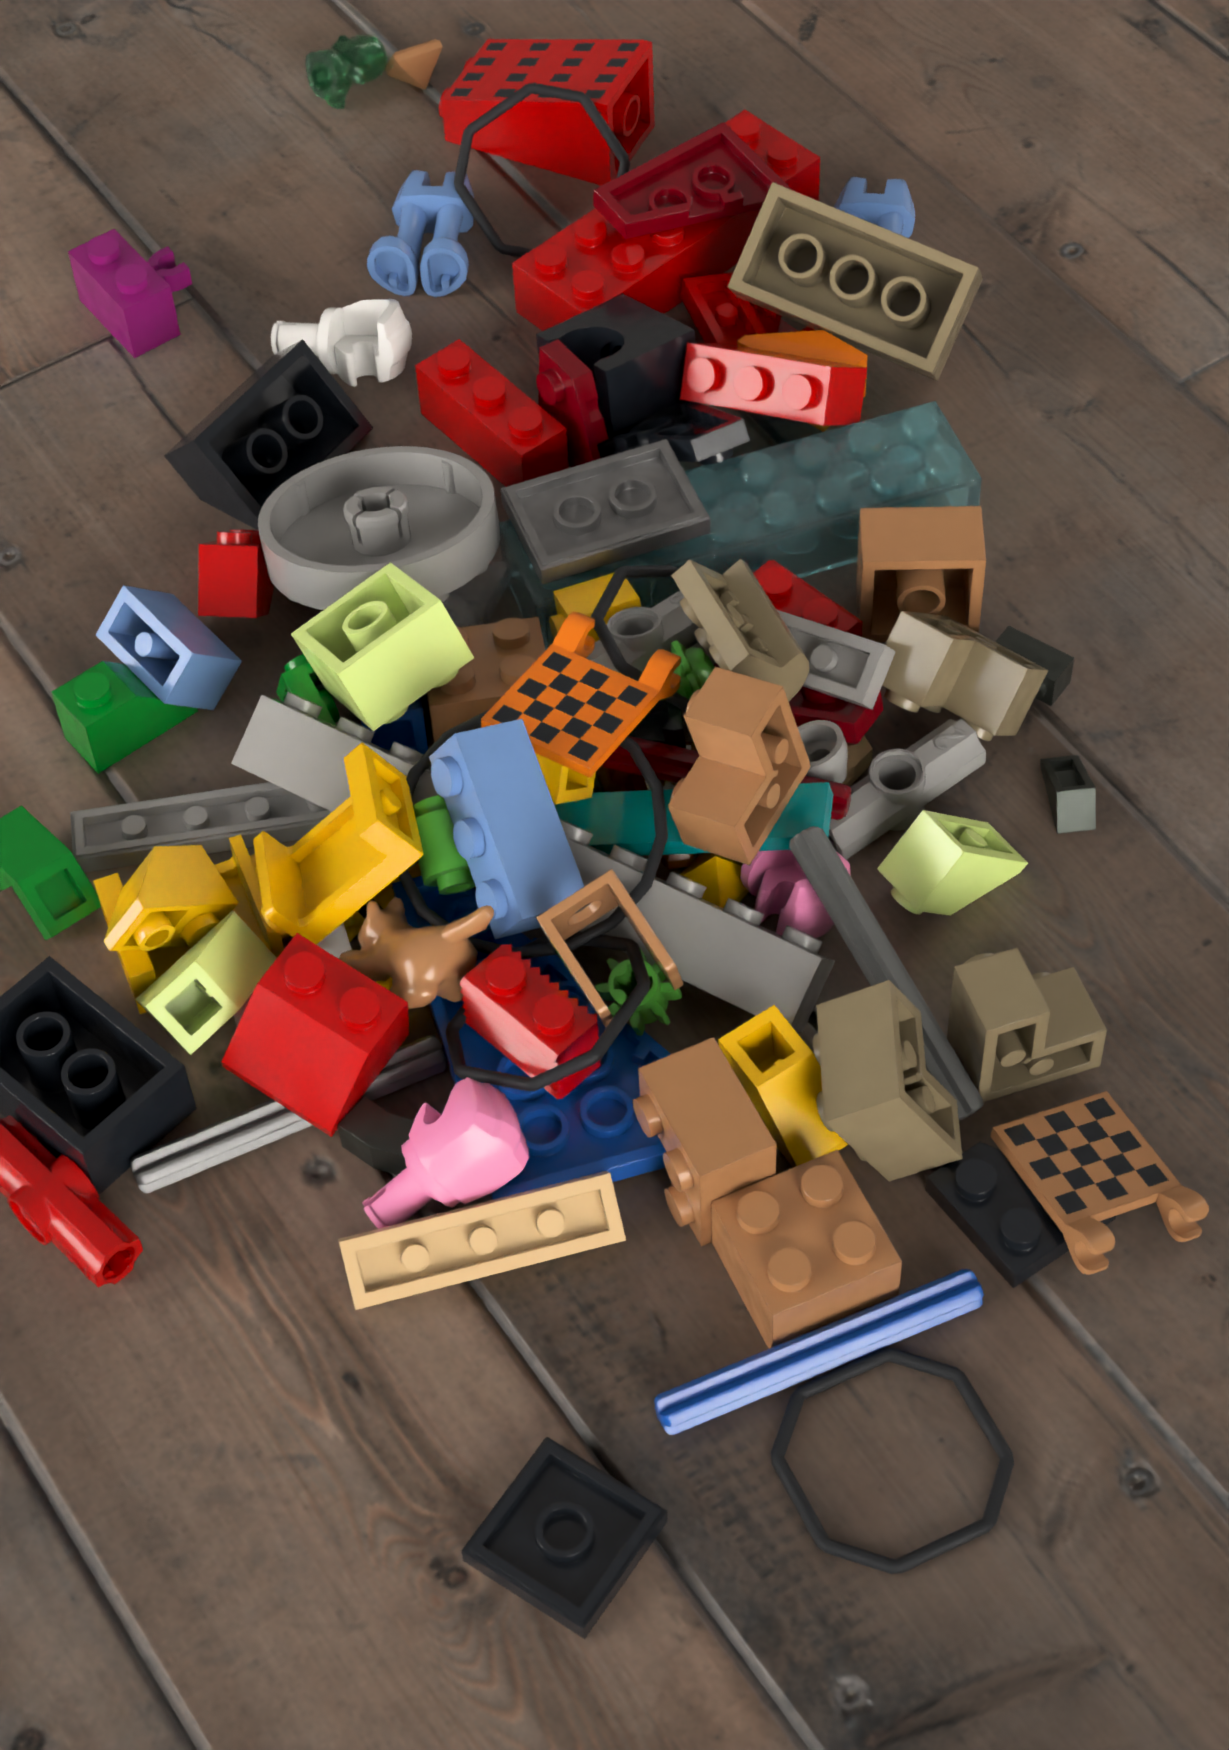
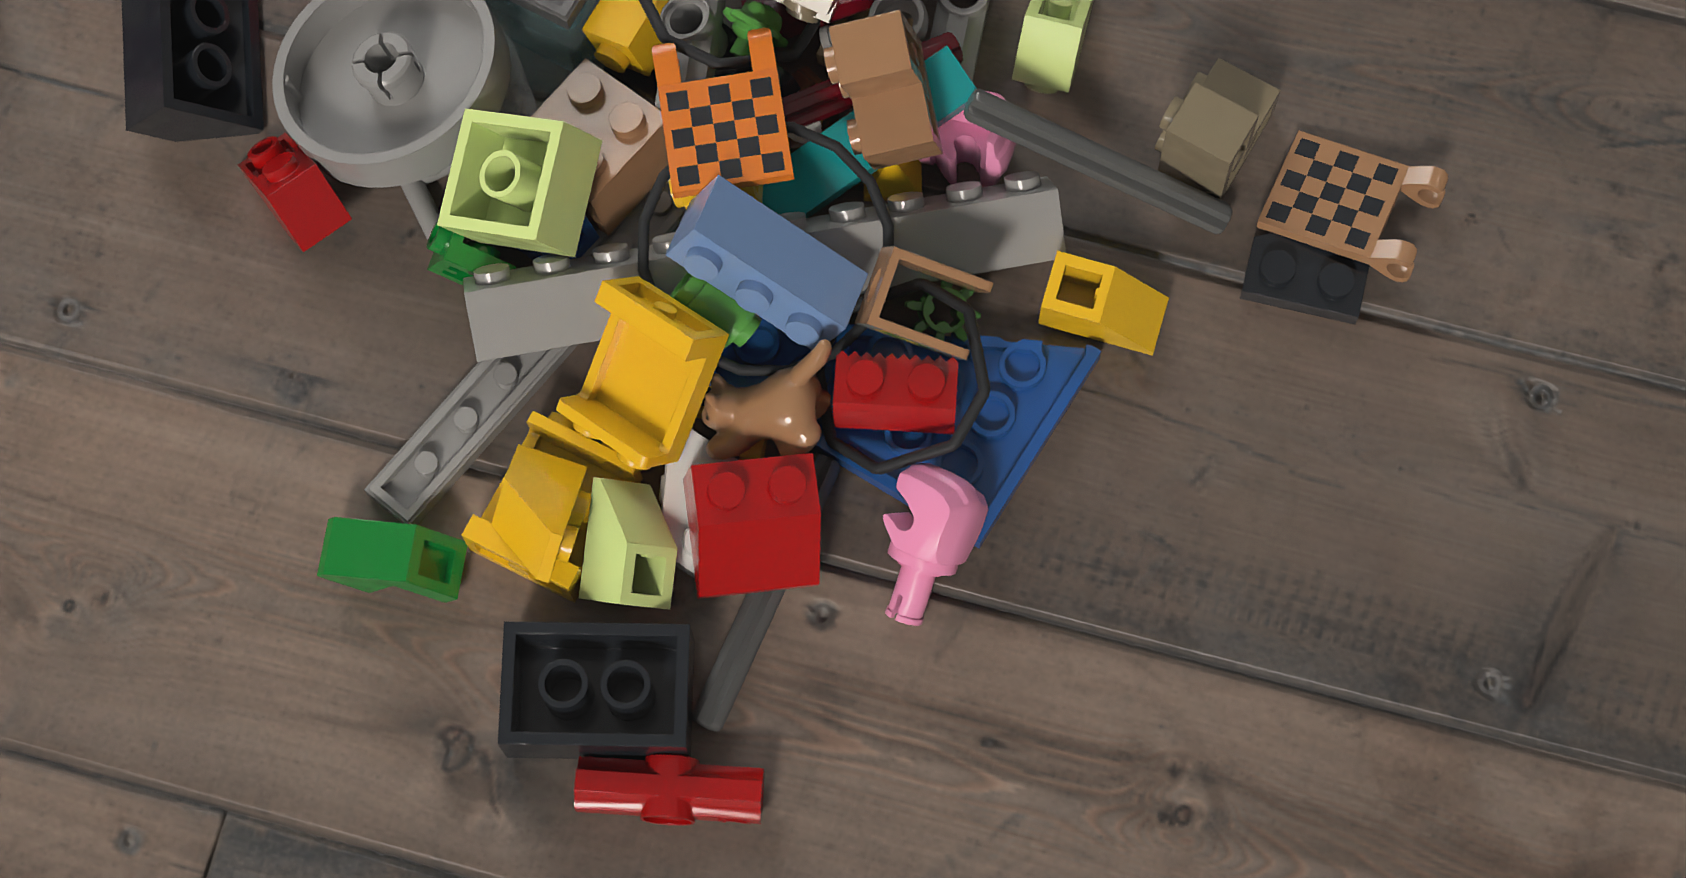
camera: 40 degrees left, 20 degrees up
(112, 713) = (318, 377): green slope -> none
(168, 648) = (310, 298): medium blue brick -> none
(375, 1136) = (853, 557): pearl dark grey piece -> none
(482, 1239) = (994, 576): tan plate -> none
(565, 1537) = (1231, 731): black tile -> none
(708, 1131) = (1098, 382): medium nougat brick -> none
(804, 1249) = (1216, 411): medium nougat brick -> none
(818, 1351) = (1278, 472): axle -> none
(879, 1083) = (1174, 252): dark tan brick -> none
(935, 1548) = (1351, 582): black piece -> none

